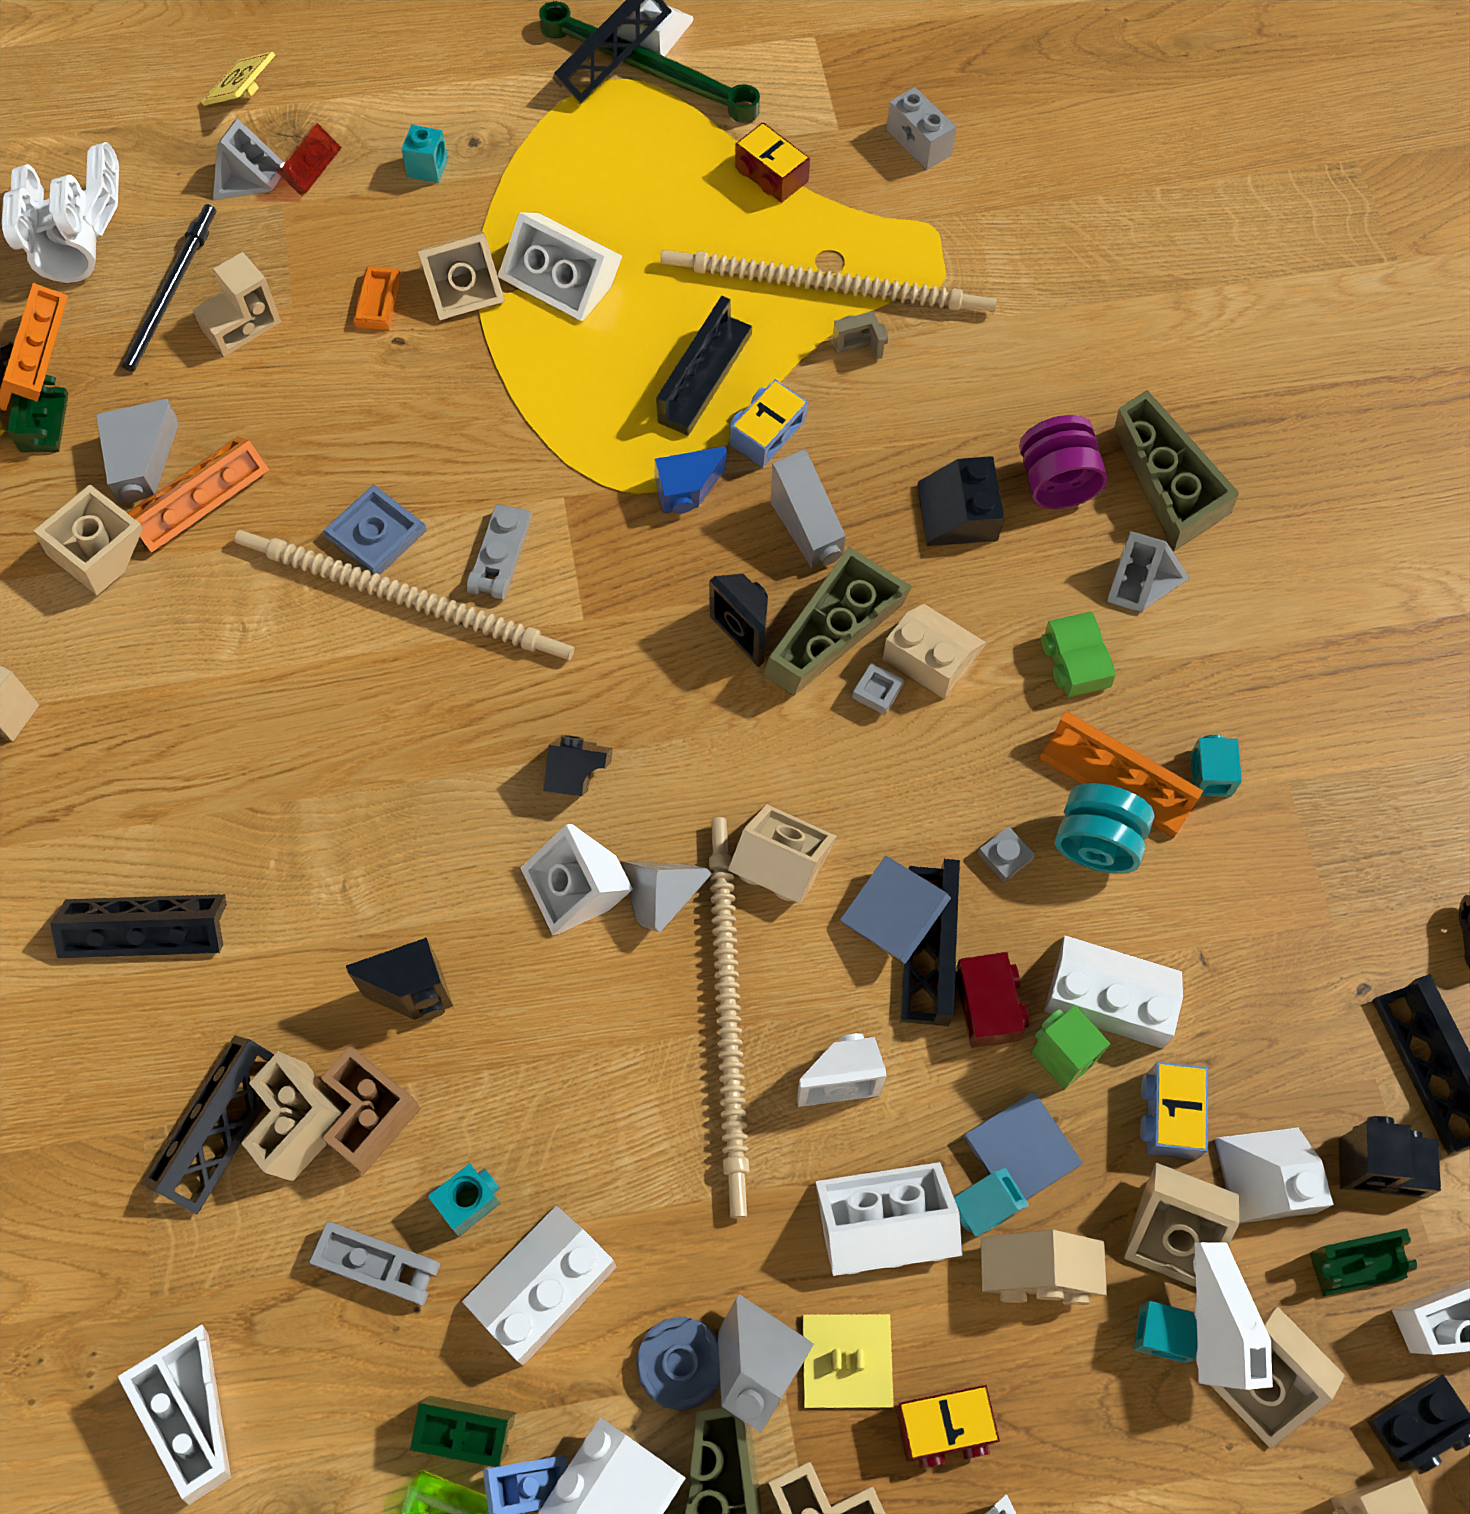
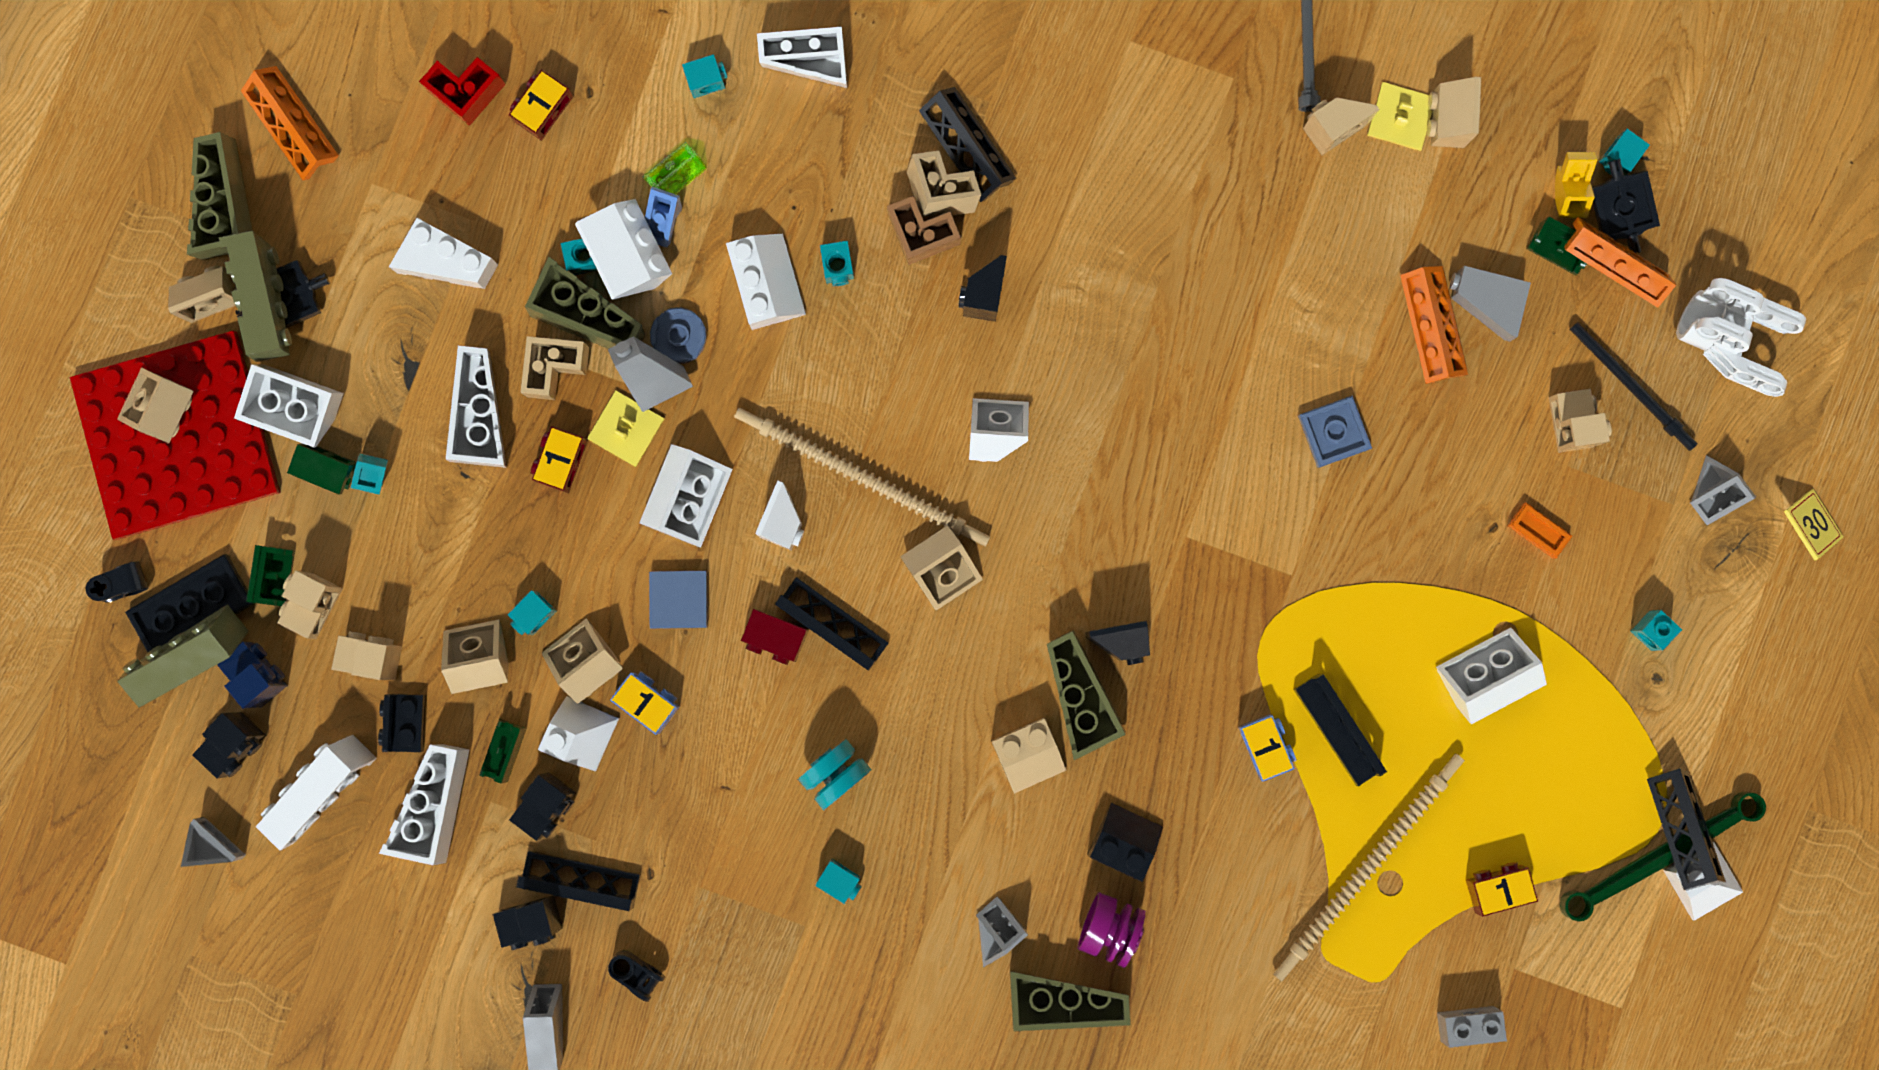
camera: 120 degrees right, 20 degrees up
(90, 539) = (1426, 237): tan slope -> none
(140, 928) = (1118, 149): black fence -> none
(309, 159) = (1700, 541): clear red plate -> none
(373, 1262) = (831, 195): light grey plate -> none
(461, 275) = (1523, 599): tan slope -> none
(462, 1431) = (711, 198): dark green hinge -> none
(500, 551) = (1269, 507): light grey plate -> none
(529, 638) = (1353, 359): tan hose -> none
(571, 764) = (1076, 470): black brick -> none
(661, 890) = (961, 480): light grey slope -> none
(688, 478) = (1251, 663): blue slope -> none
(806, 509) = (1174, 729): light grey slope -> none
(858, 332) = (1310, 857): dark tan bracket -> none
(878, 689) = (1019, 698): light grey plate -> none
(895, 909) = (862, 612): sand blue tile -> none
(990, 1202) = (657, 557): teal brick -> none
(1006, 854) = (861, 709): light grey plate -> none
(1043, 1264) = (604, 564): tan brick -> none
(1068, 1045) = (716, 660): bright green brick -> none
(1079, 654) = (967, 846): bright green brick -> none
(1087, 761) = (868, 814): orange fence -> none
(1117, 991) = (737, 718): white slope -> none
(1230, 1332) = (512, 642): white slope -> none

